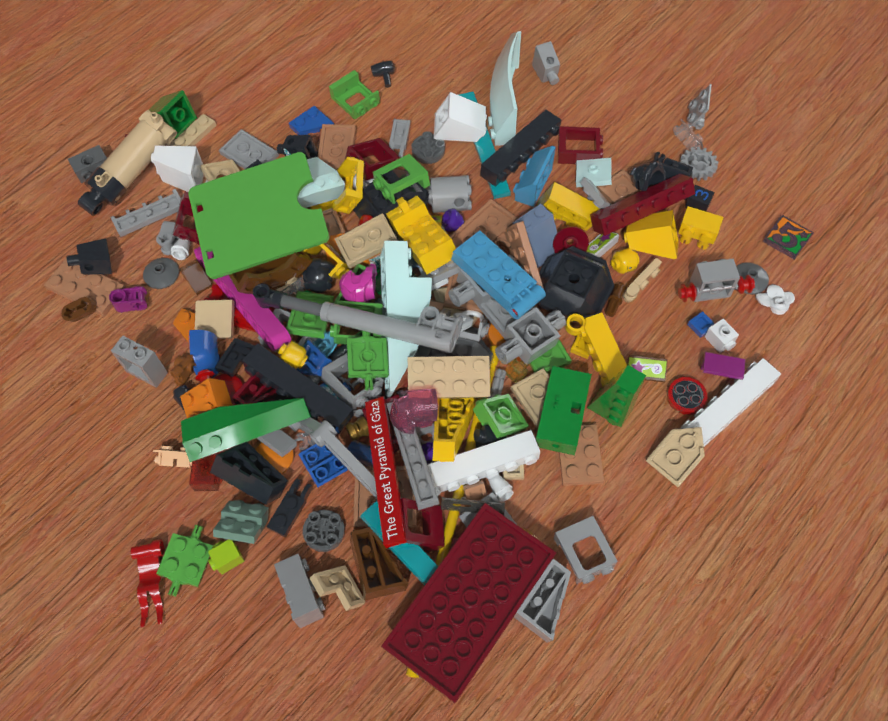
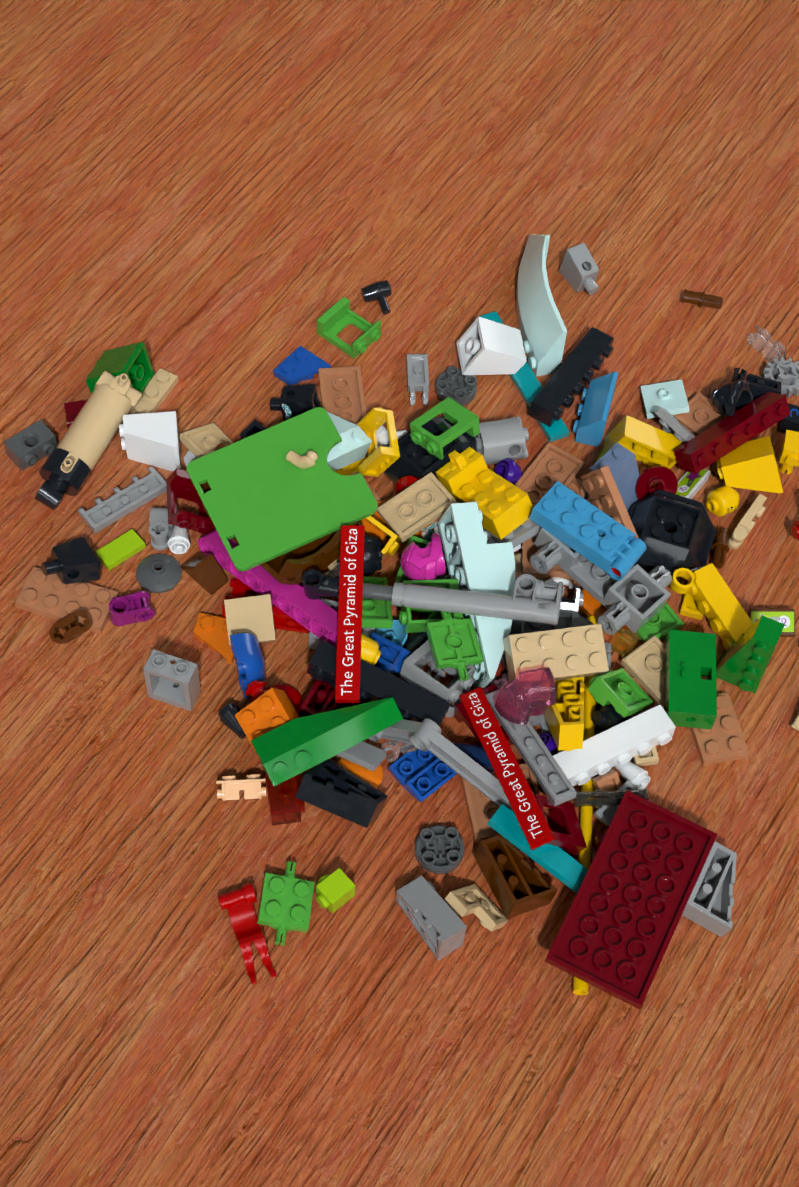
camera: 15 degrees left, 5 degrees down
(135, 251) = (120, 549): none -> lime tile
(182, 369) = (222, 683): dark orange plate -> none
(233, 357) = (285, 659): black plate -> none
(241, 521) = (345, 848): sand green plate -> none
(246, 149) = (229, 410): light grey tile -> none
(276, 195) = (302, 462): none -> tan arm
(282, 325) = (350, 615): none -> red tile
(289, 509) = (392, 831): black hinge -> none
(354, 432) = (455, 728): pearl gold wheel -> none
(372, 147) = (396, 394): dark red window -> none
(576, 533) = (734, 811): light grey window -> none
(578, 133) = (632, 382): dark red window -> none
(642, 95) = (702, 299): none -> reddish brown axle
(698, 108) = (774, 309): light grey hinge -> none

